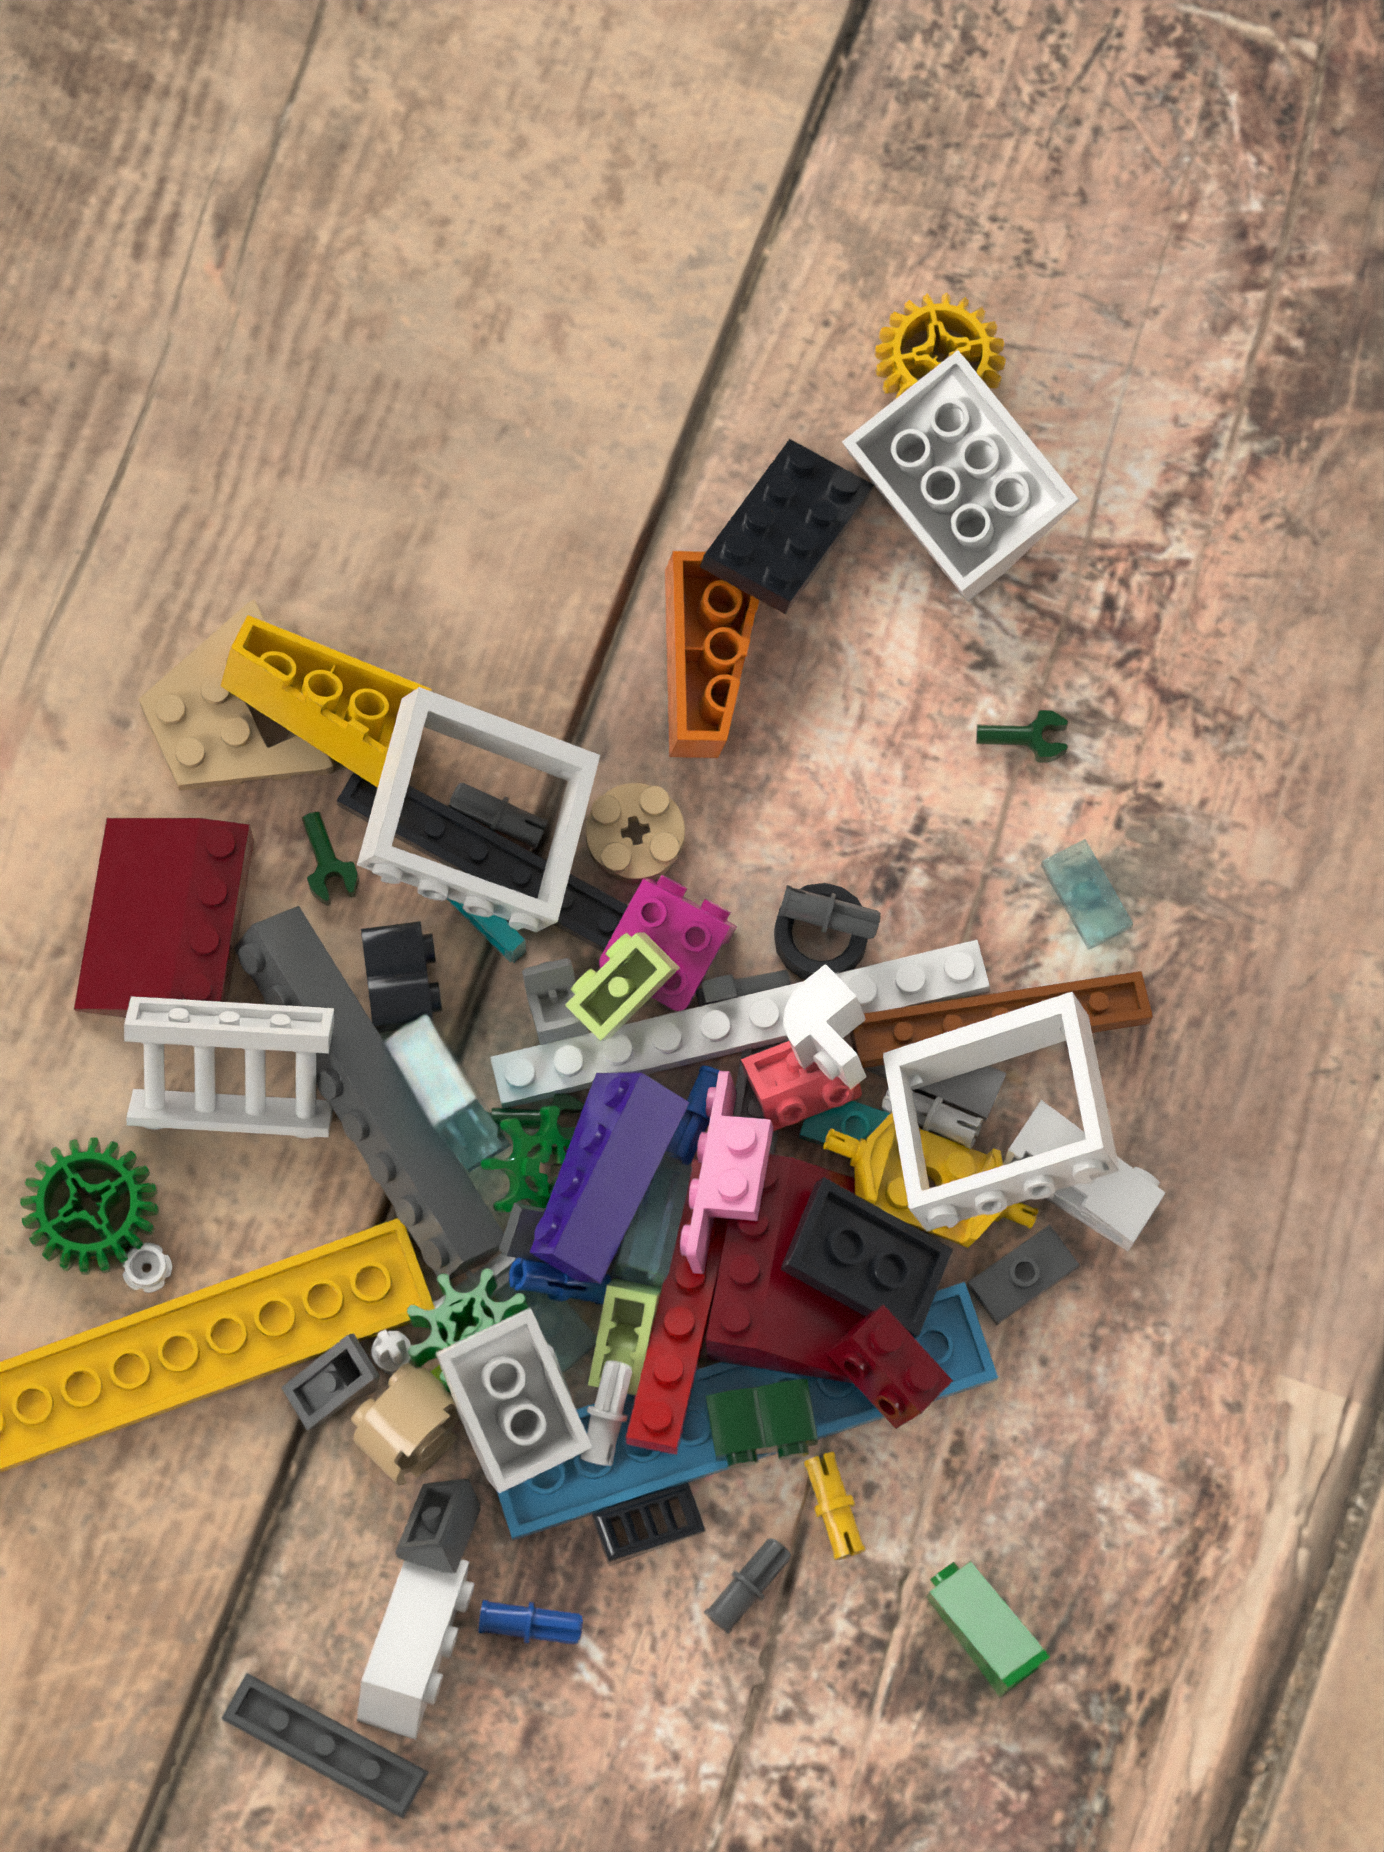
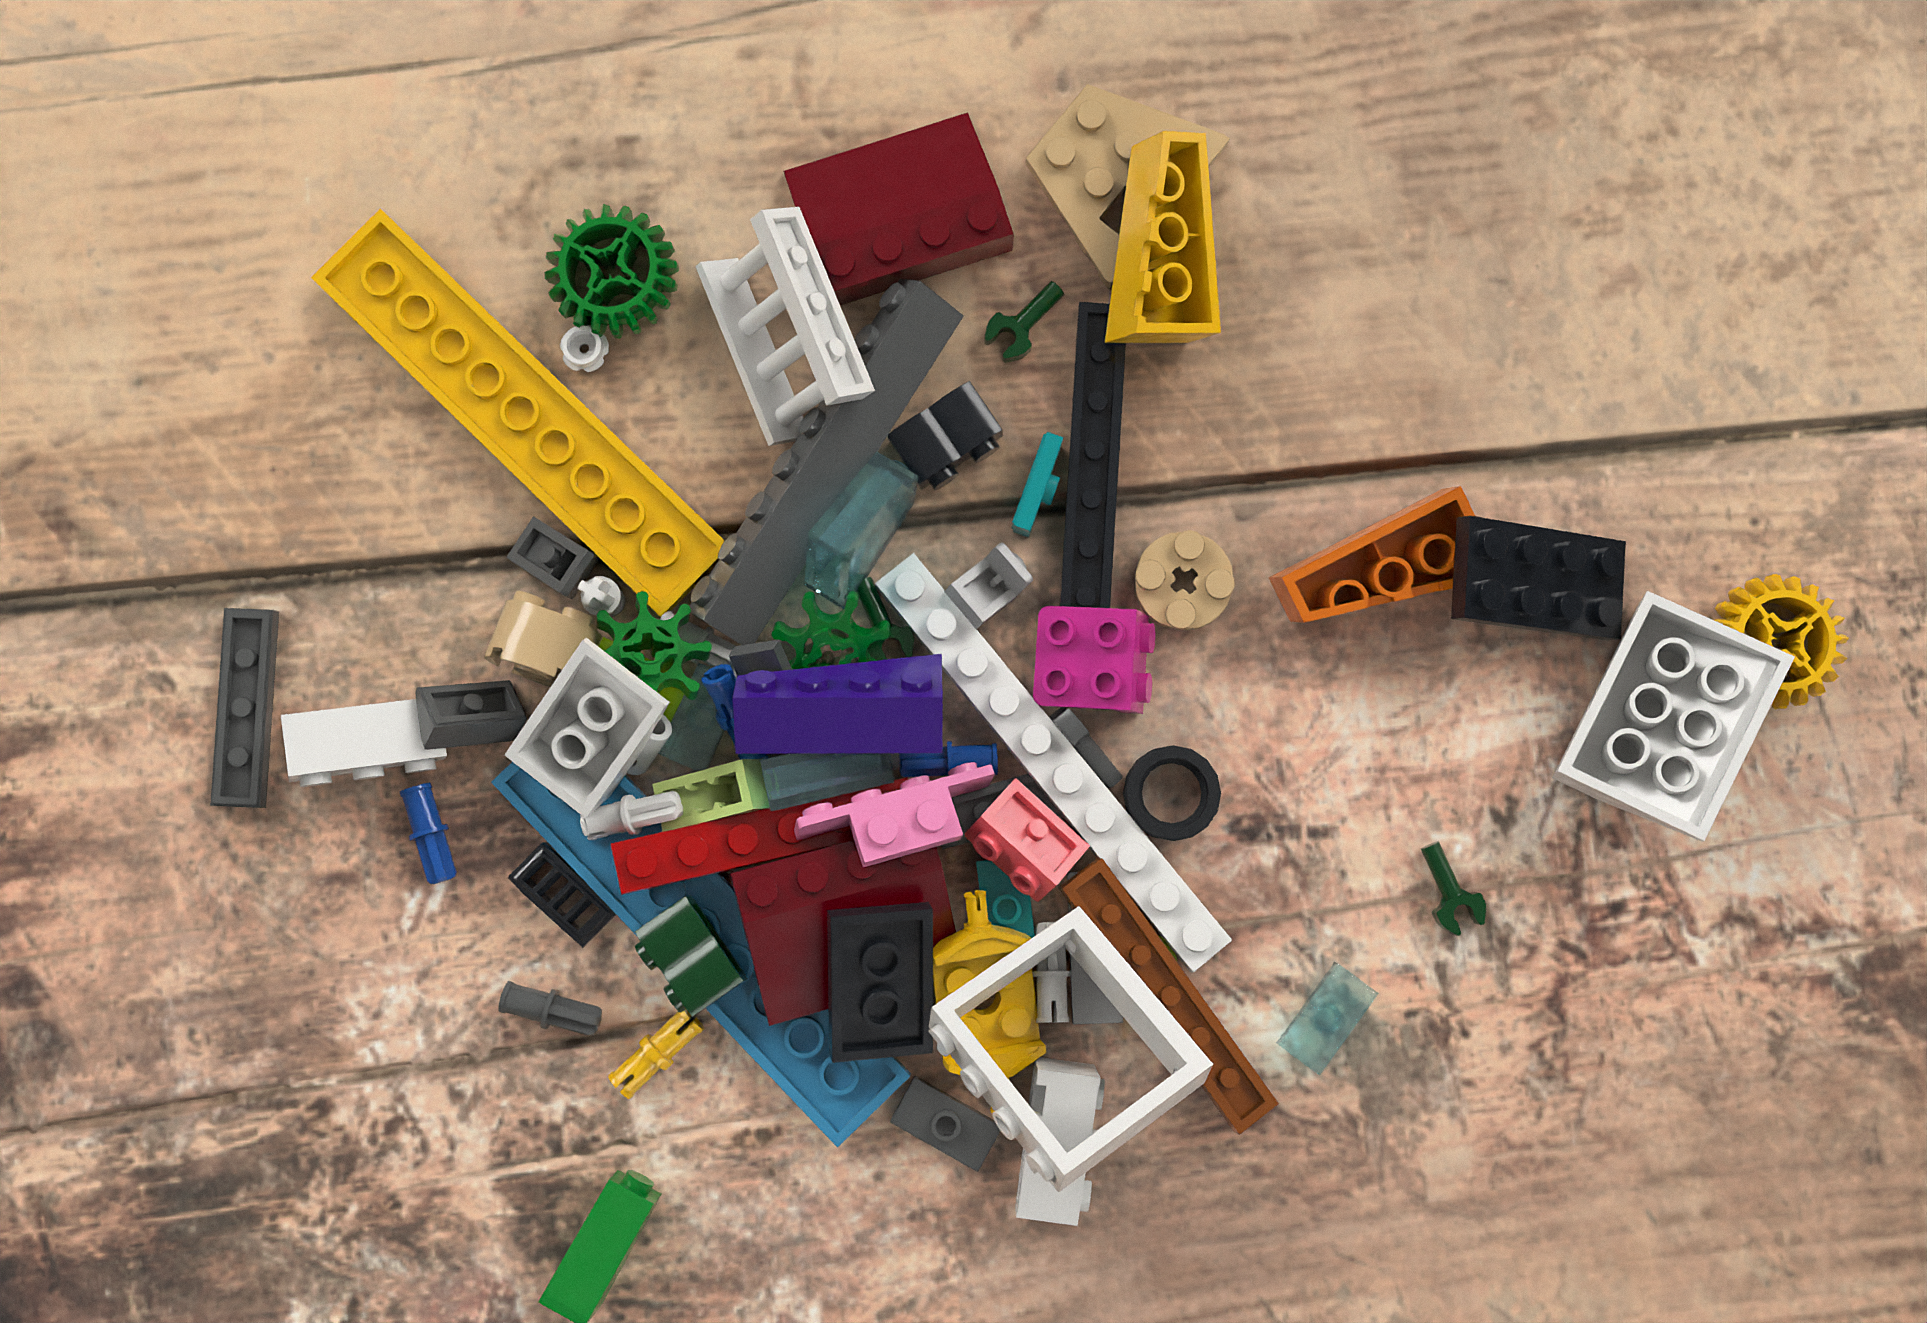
camera: 70 degrees right, 10 degrees up
(498, 814) = (1138, 451): dark grey axle -> none
(505, 739) = (1202, 414): white window -> none
(622, 985) = (1023, 639): yellowish green brick -> none
(817, 1021) = (1078, 832): white brick -> none
(829, 913) = (1188, 793): dark grey axle -> none
(889, 1367) = (788, 1051): dark red brick -> none

